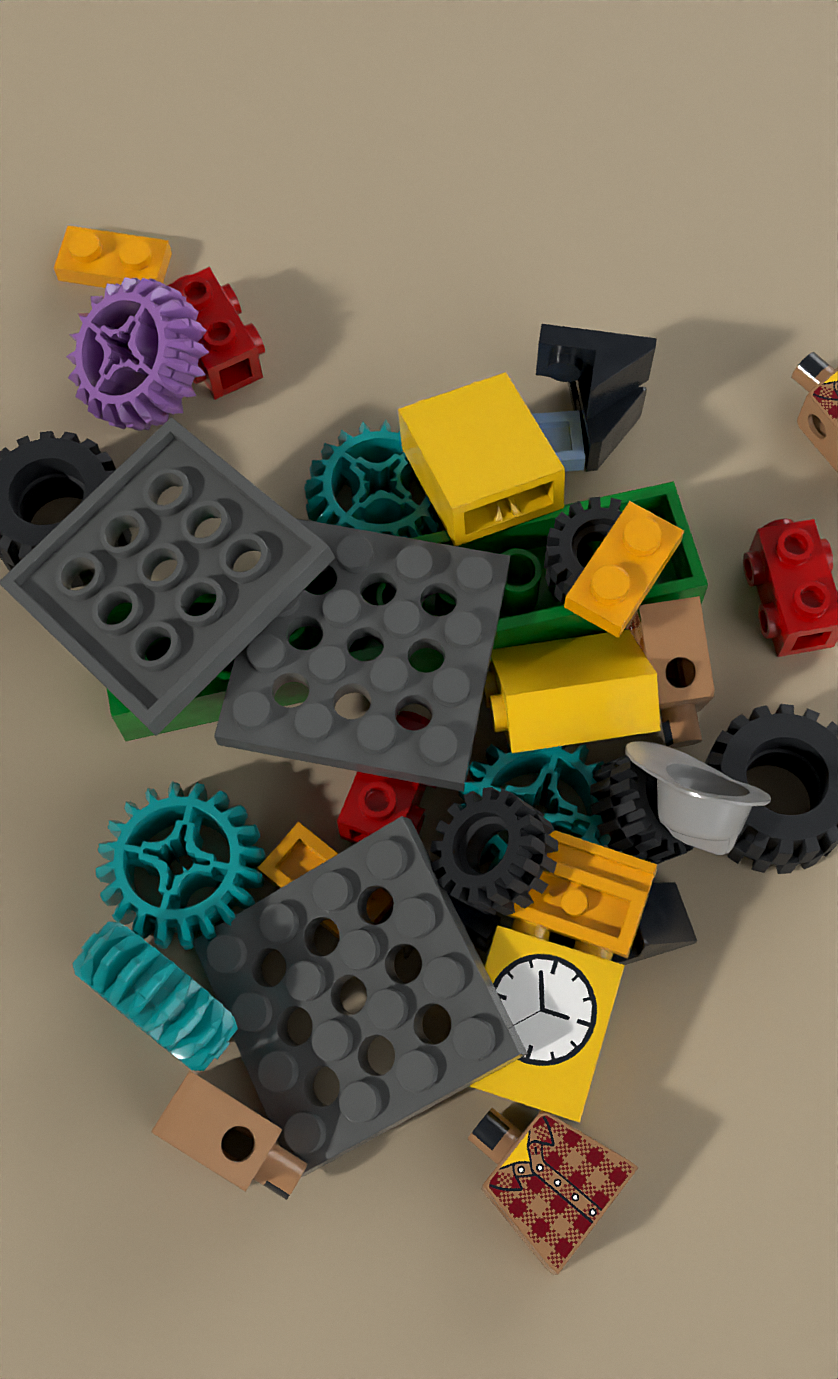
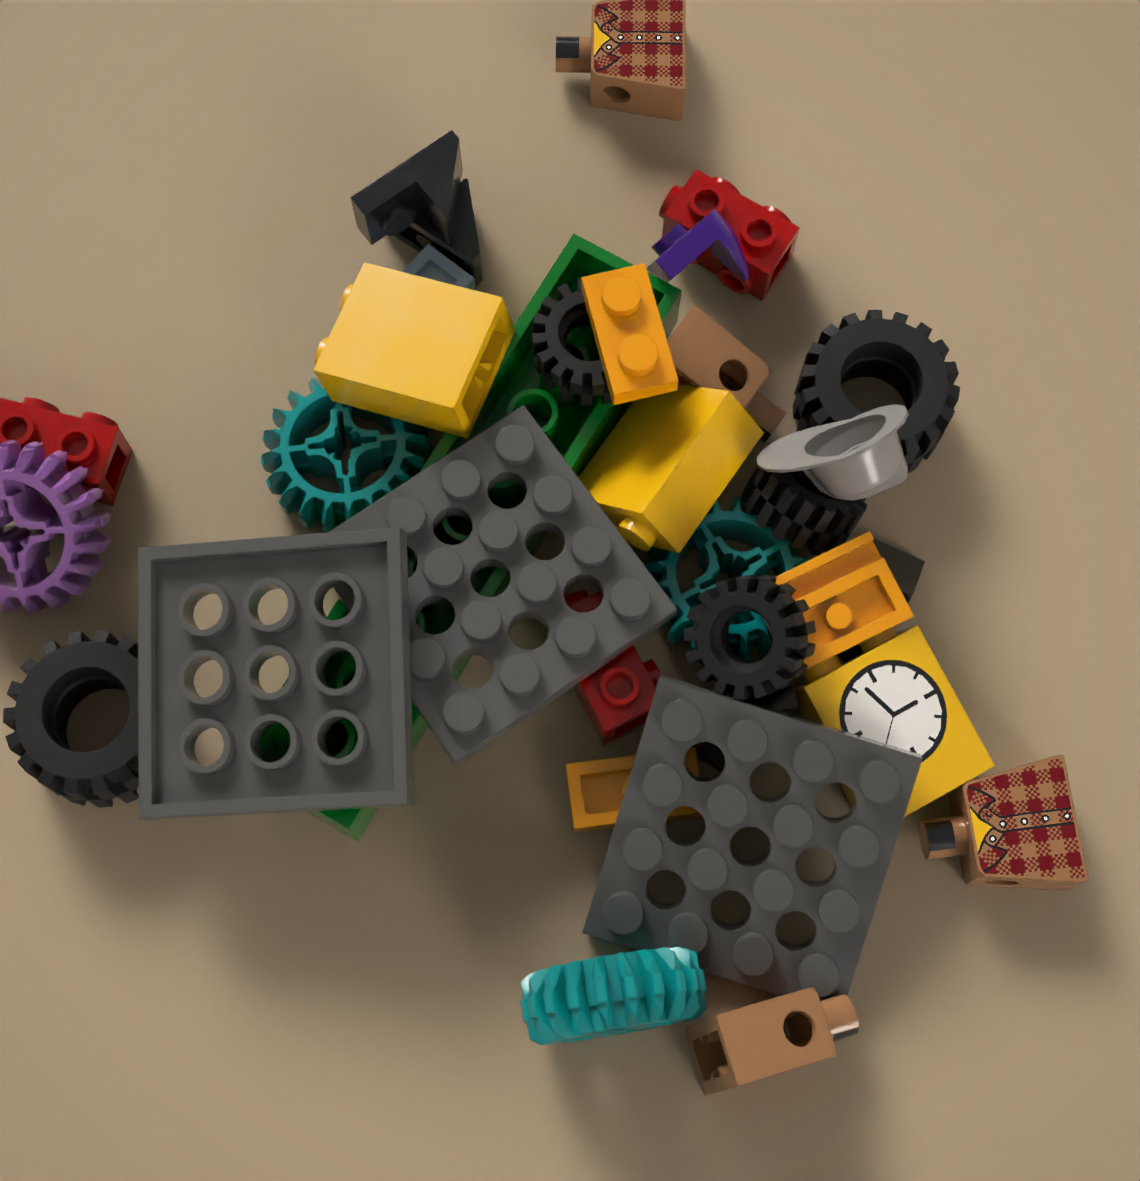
camera: 50 degrees left, 5 degrees up
(156, 857) = (487, 905): teal gear -> none
(741, 558) = (681, 247): none -> dark purple plate

